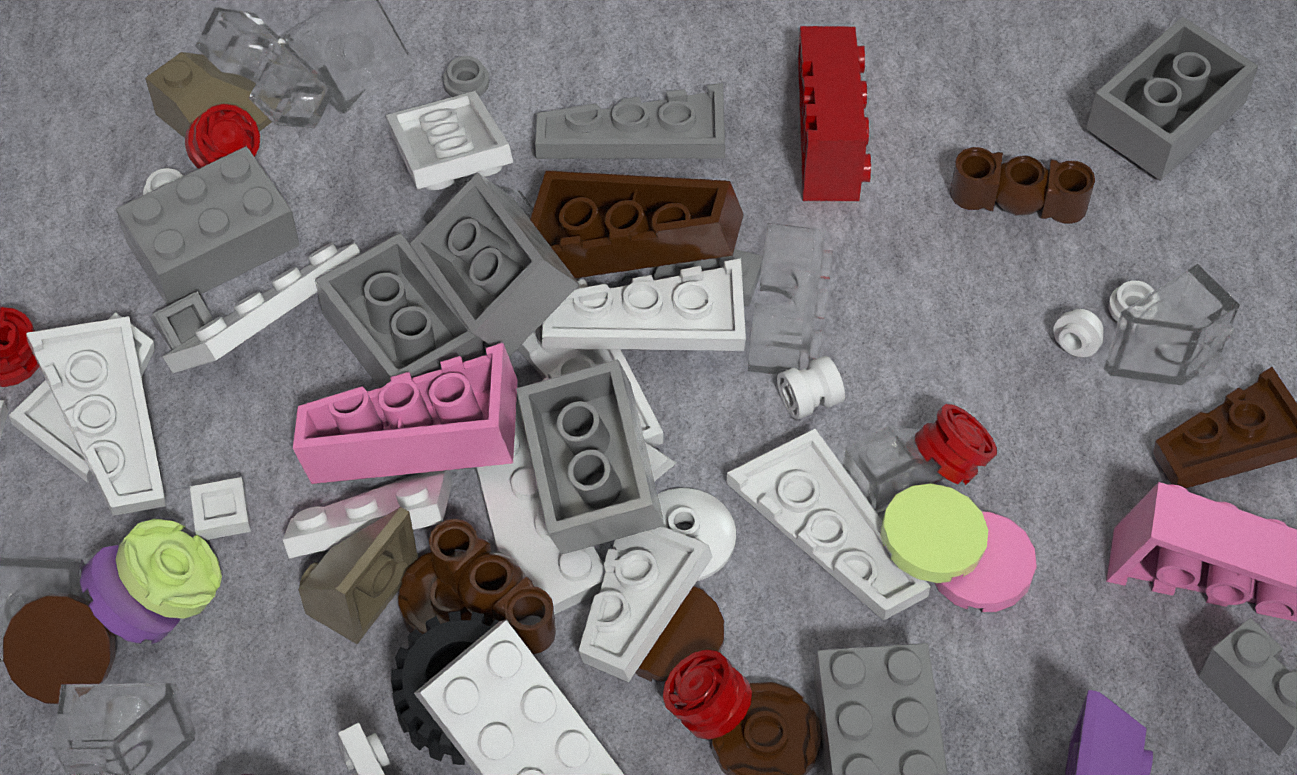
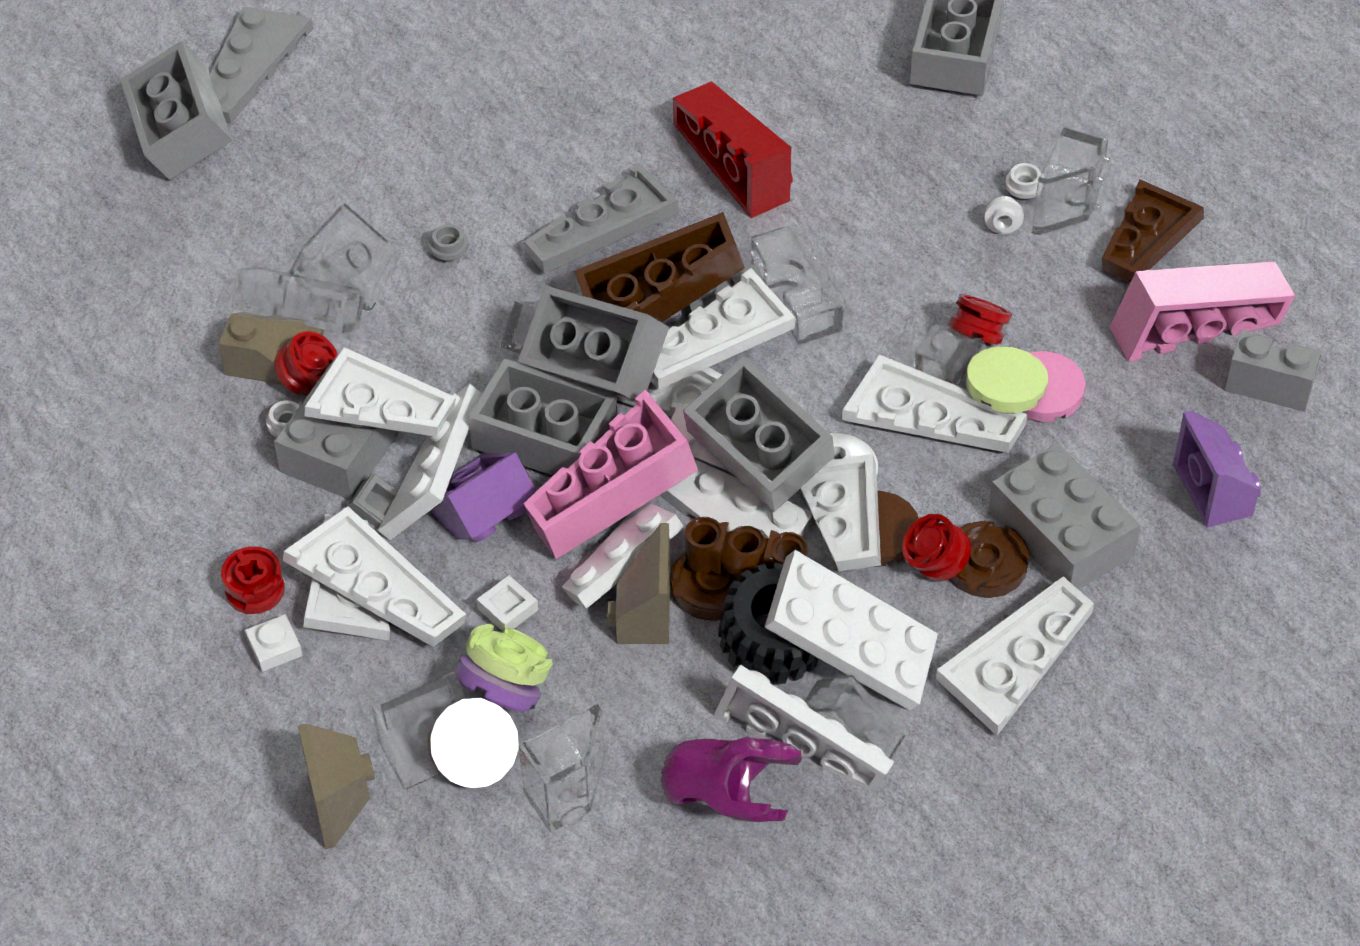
camera: 30 degrees left, 5 degrees down
(234, 212) = (378, 396): none -> white wing
(280, 372) = (483, 495): none -> medium lavender slope
(449, 141) = (486, 282): white plate -> none
(809, 388) = (858, 328): white wheel -> none
(1022, 185) = (897, 138): reddish brown piece -> none

